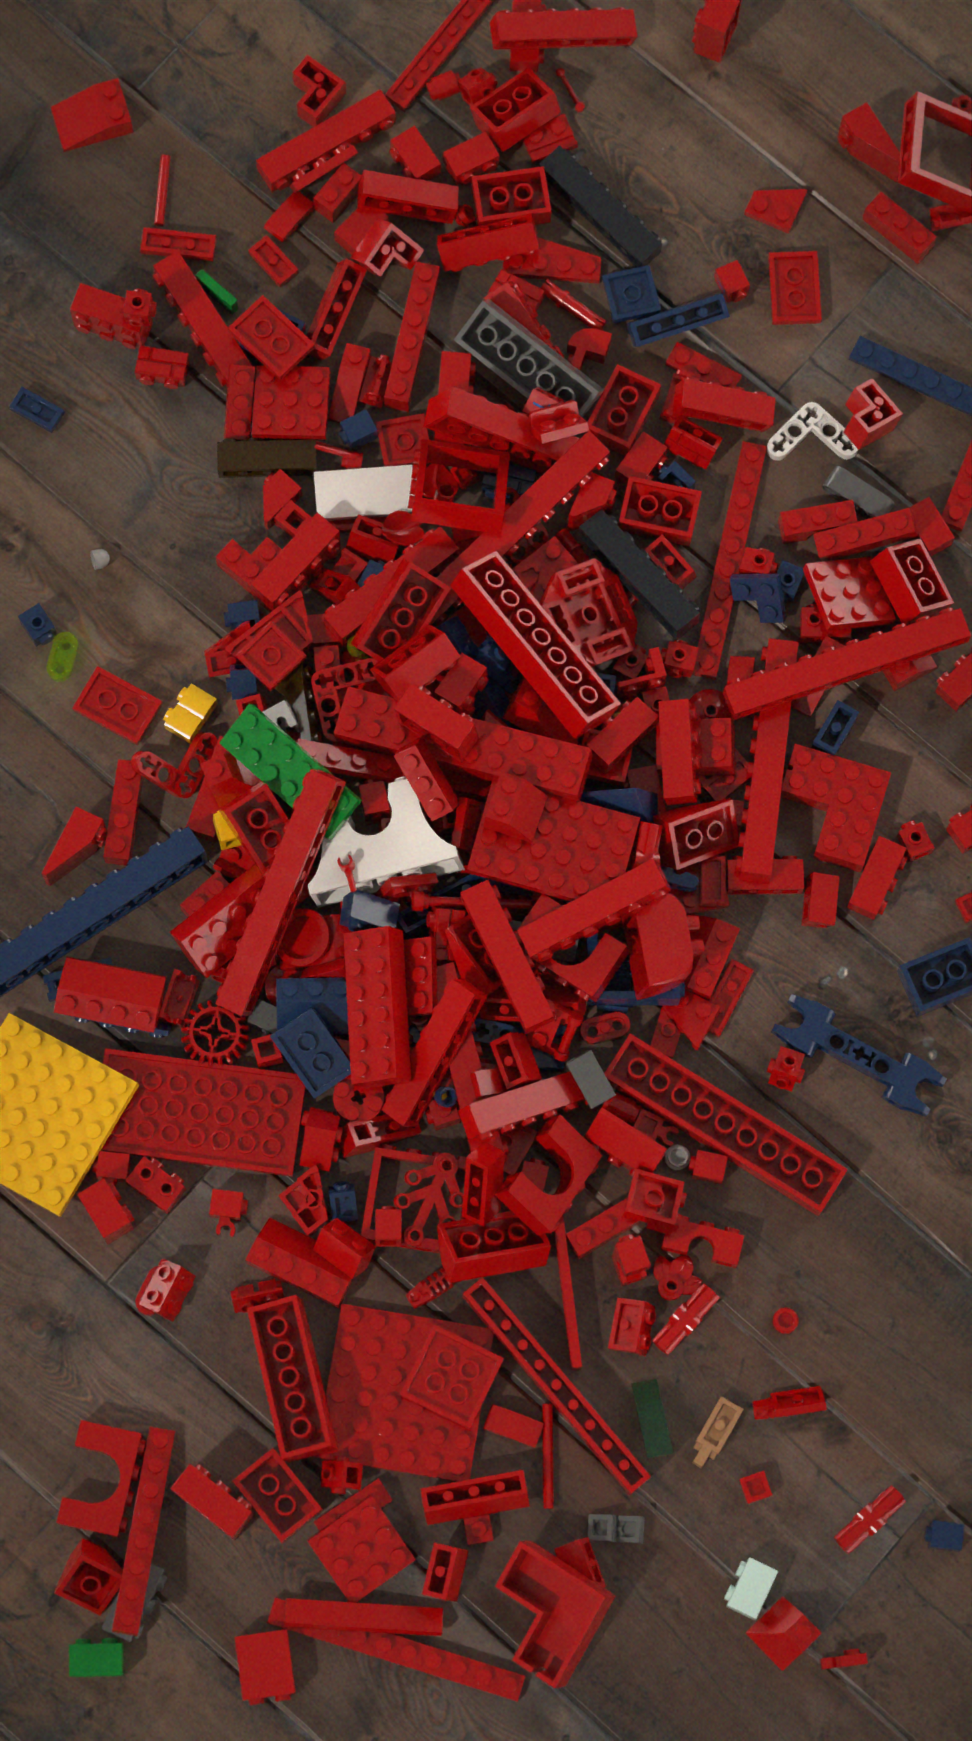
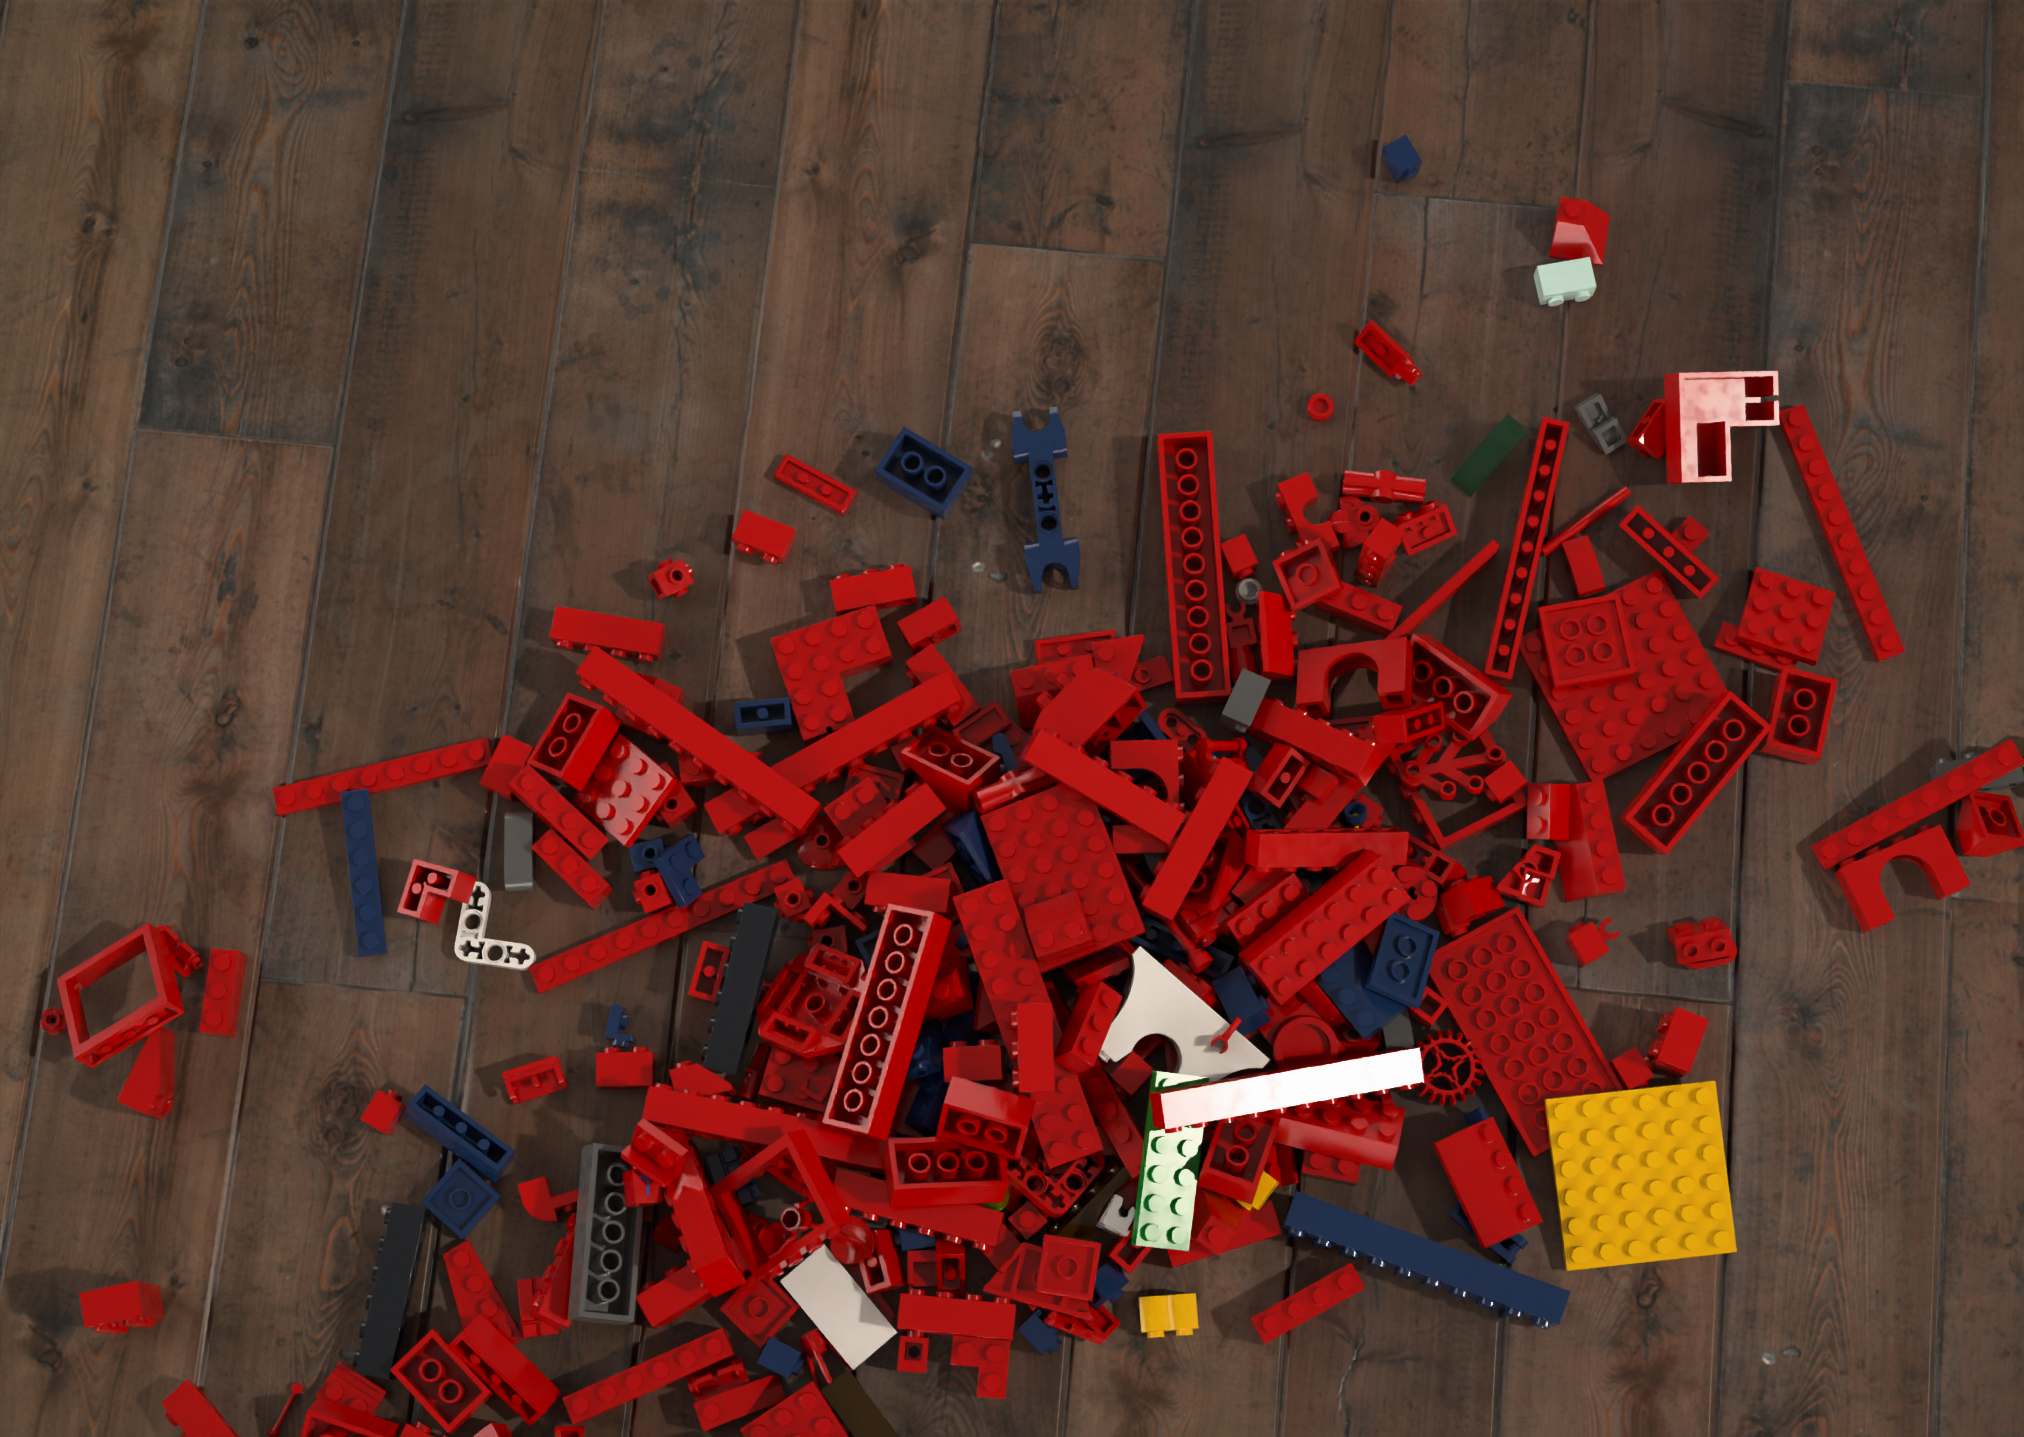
camera: 120 degrees left, 0 degrees up
(77, 843) = (1367, 1322): red slope -> none
(117, 705) = (1210, 1389): red plate -> none
(156, 1184) = (1616, 1019): red brick -> none
(175, 775) = (1237, 1279): red beam -> none
(179, 999) = (1438, 1124): red hinge -> none
(213, 1500) = (1848, 765): red brick -> none
(245, 1297) = (1651, 867): red hinge -> none
(265, 1666) = (1941, 626): red brick -> none
(277, 492) = (899, 1388): red slope -> none
(341, 1475) = (1739, 675): red brick -> none
(343, 1201) = (1505, 846): dark blue bracket -> none
(363, 1617) = (1838, 573): red tile -> none
(429, 1288) = (1523, 718): red hinge -> none
(445, 1572) = (1750, 532): red brick -> none
(464, 215) = (489, 1414): red plate -> none
(536, 1172) = (1360, 697): red brick -> none
(570, 304) = (511, 1246): red pin -> none
(623, 409) = (585, 1119): red brick -> none
(659, 509) = (663, 1017): red slope -> none
(692, 442) = (573, 1034): red brick -> none
(694, 362) = (490, 1081): red plate -> none
(716, 1430) = (1457, 398): medium nougat hinge -> none
(724, 404) = (517, 1029): red brick -> none
(755, 1487) = (1479, 335): red plate -> none
(776, 207) = (277, 1125): red wing -> none
(786, 1069) = (1104, 550): red brick -> none
(794, 287) = (350, 1050): red plate -> none
(850, 1658) = (1561, 167): red plate -> none
(869, 1519) = (1434, 227): red piece -> none
(915, 849) = (818, 591): red brick -> none

